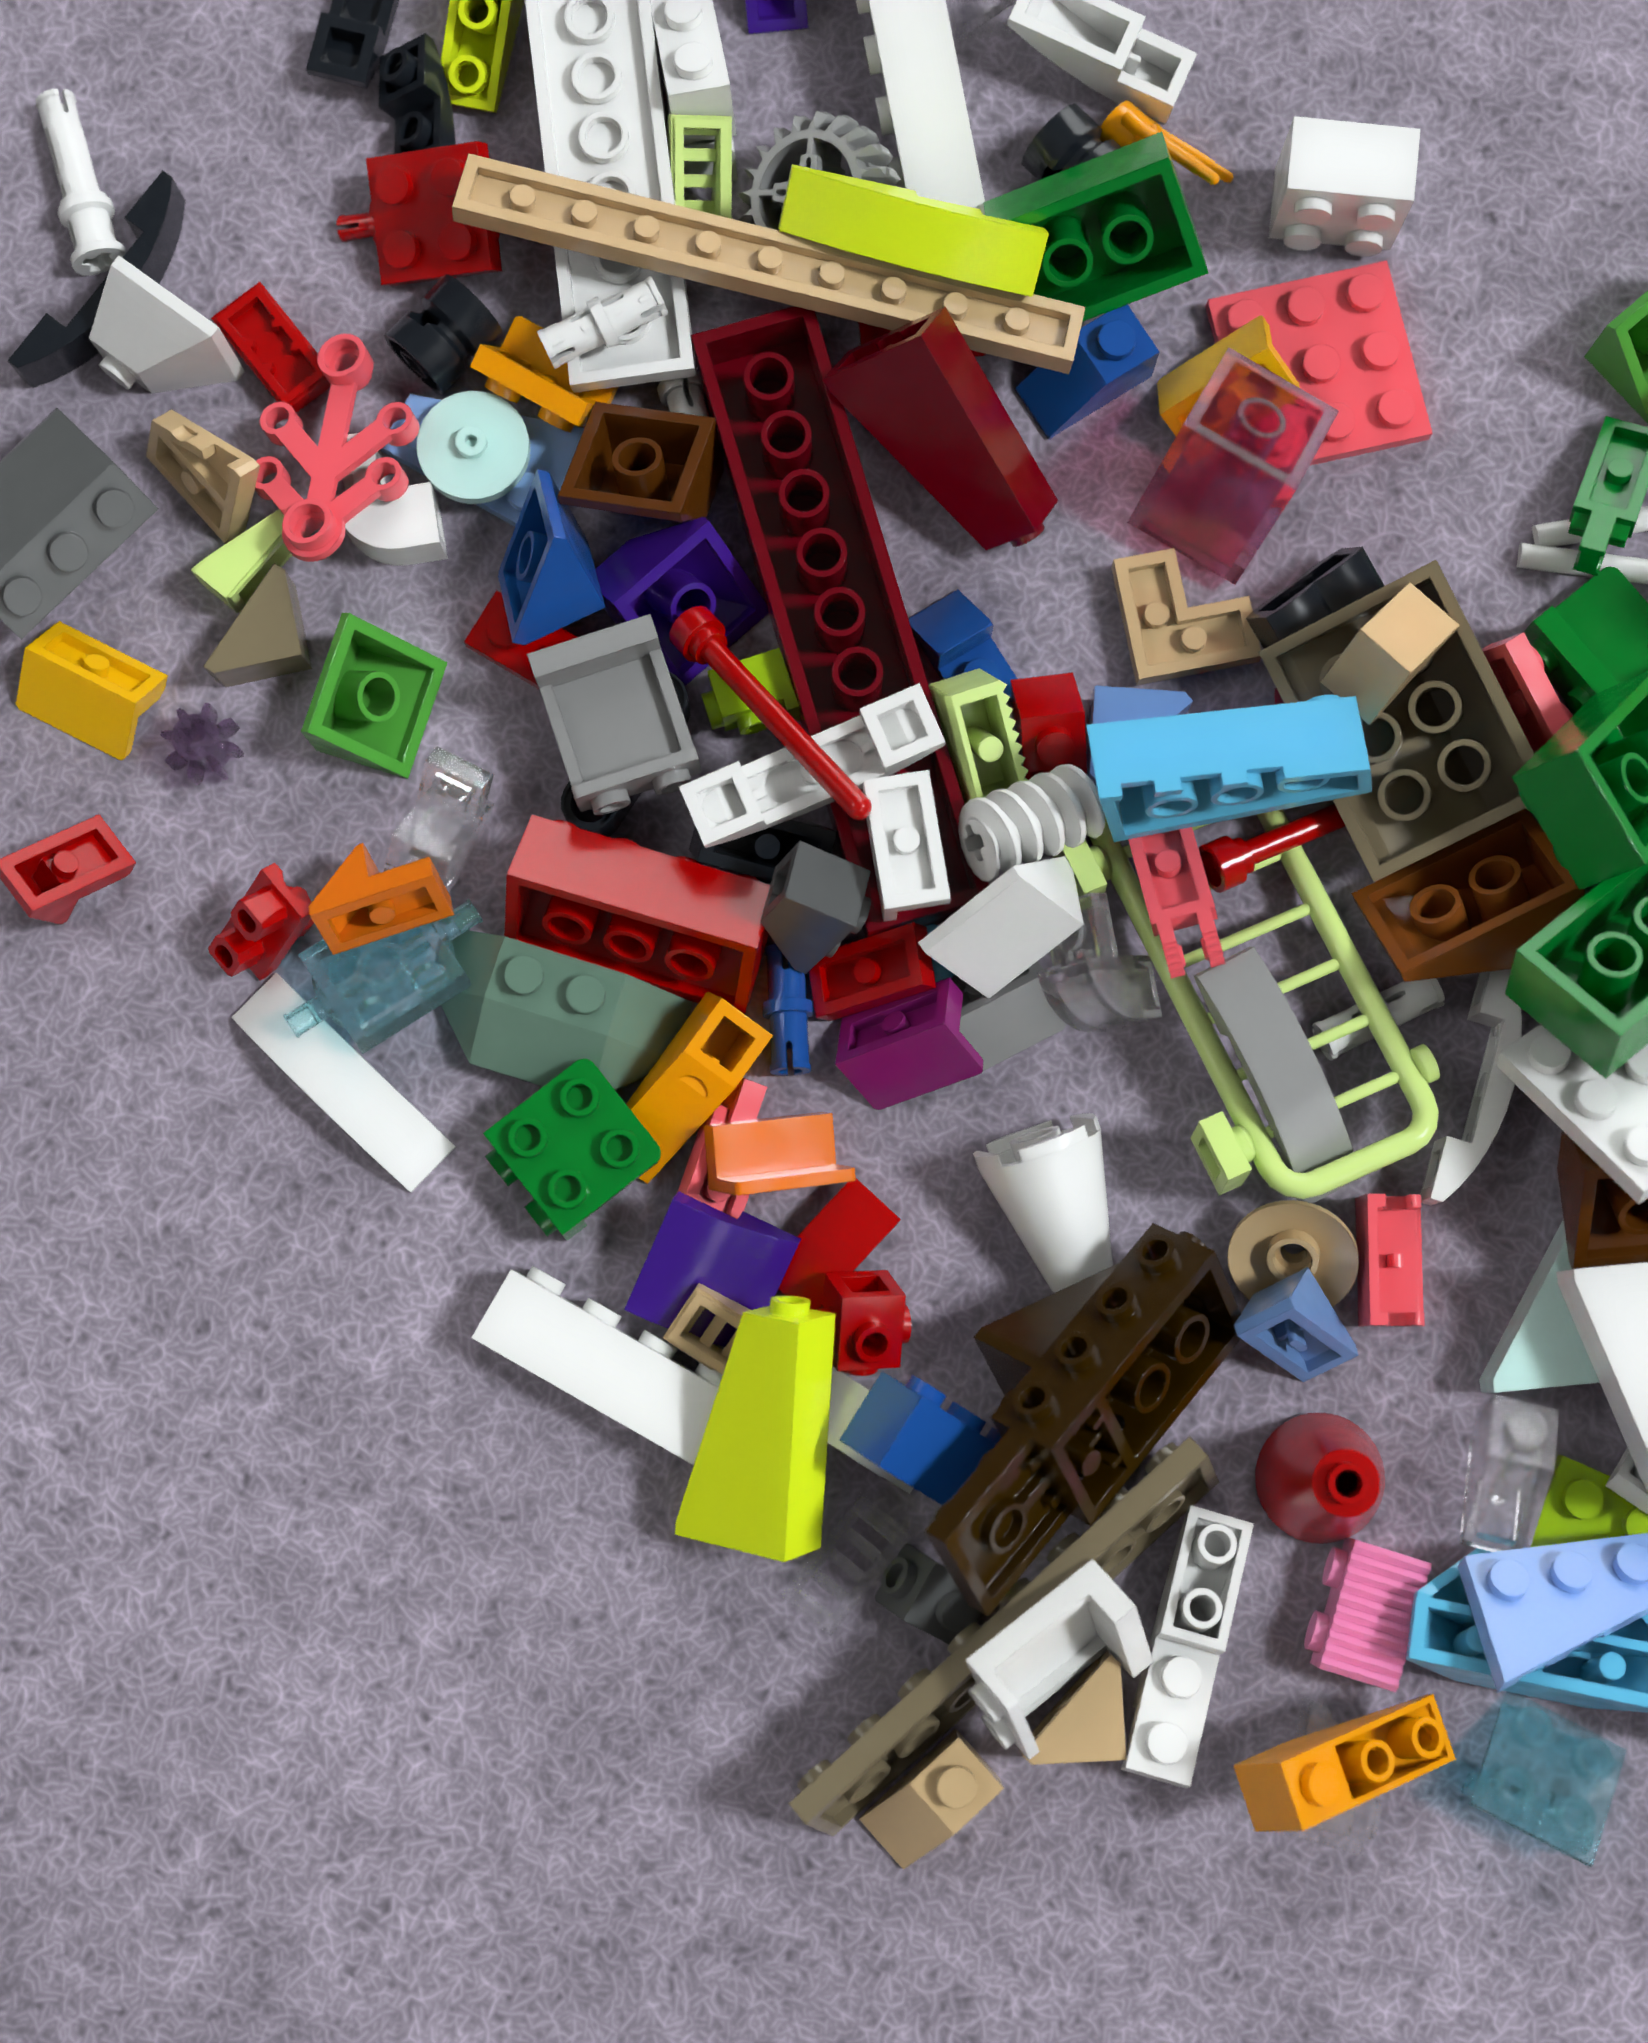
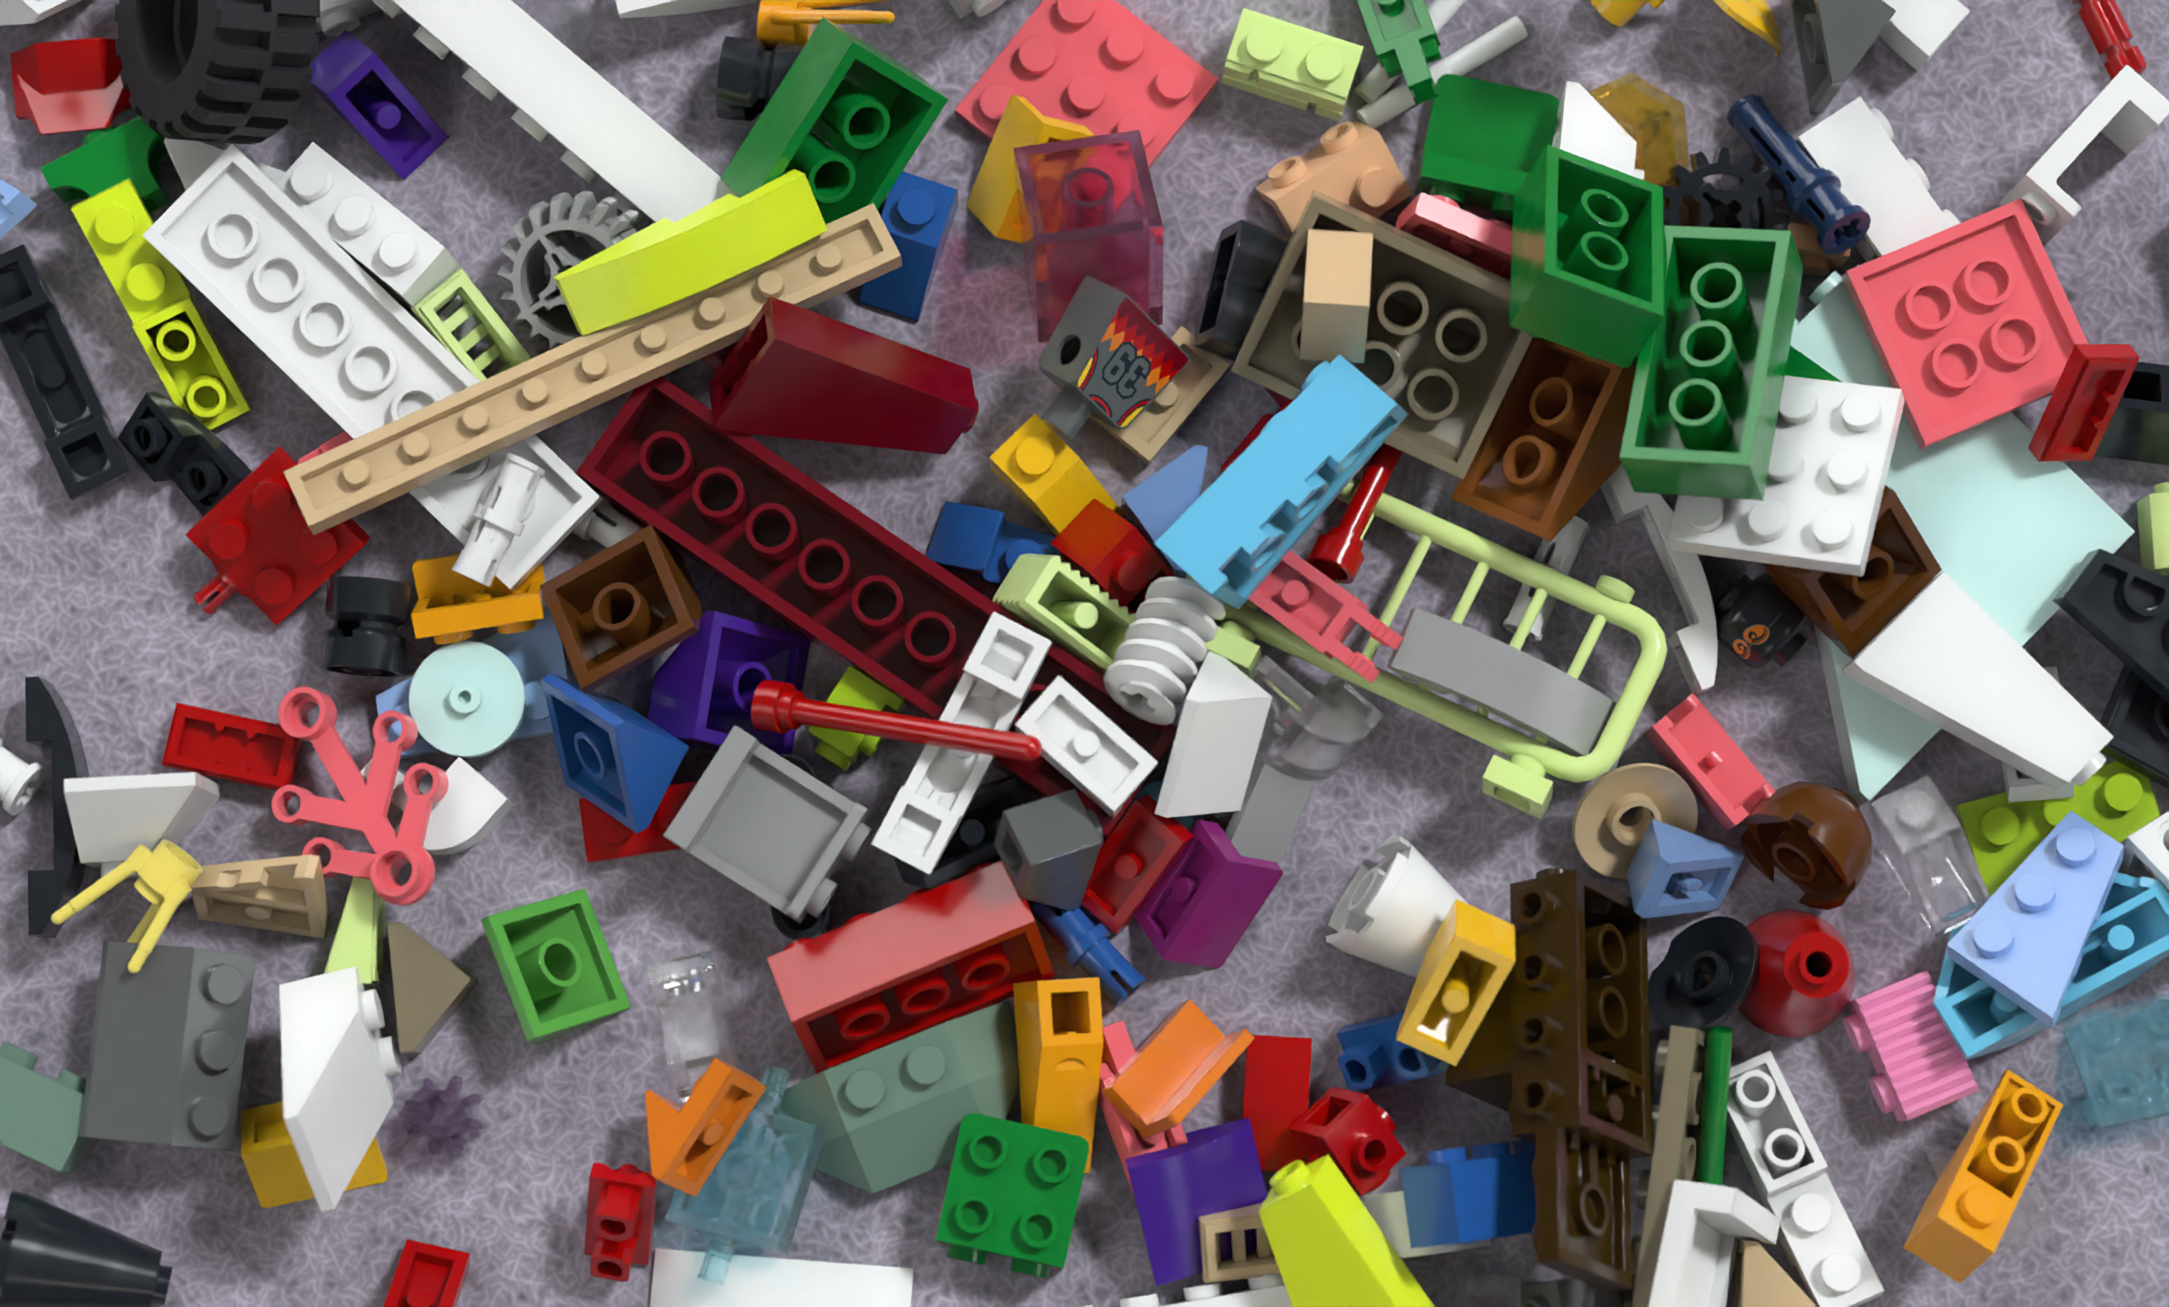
camera: 45 degrees left, 0 degrees up
(130, 640) = (334, 1075): none -> white slope
(135, 397) = (163, 880): none -> light yellow plant
(958, 1279) = (1377, 1059): none -> blue hips
(1047, 1263) = (1457, 982): none -> yellow slope
(1051, 625) = (1047, 475): none -> yellow slope
(1168, 568) = (1106, 360): none -> dark grey torso
(1174, 1529) = (1714, 1105): none -> green bar
(1250, 1421) = (1704, 974): none -> black dish
(1423, 1386) = (1823, 845): none -> reddish brown cylinder
(1482, 577) = (1347, 166): none -> light nougat bracket
(1499, 464) = (1291, 64): none -> yellowish green brick
(1519, 1183) = (1759, 622): none -> black head

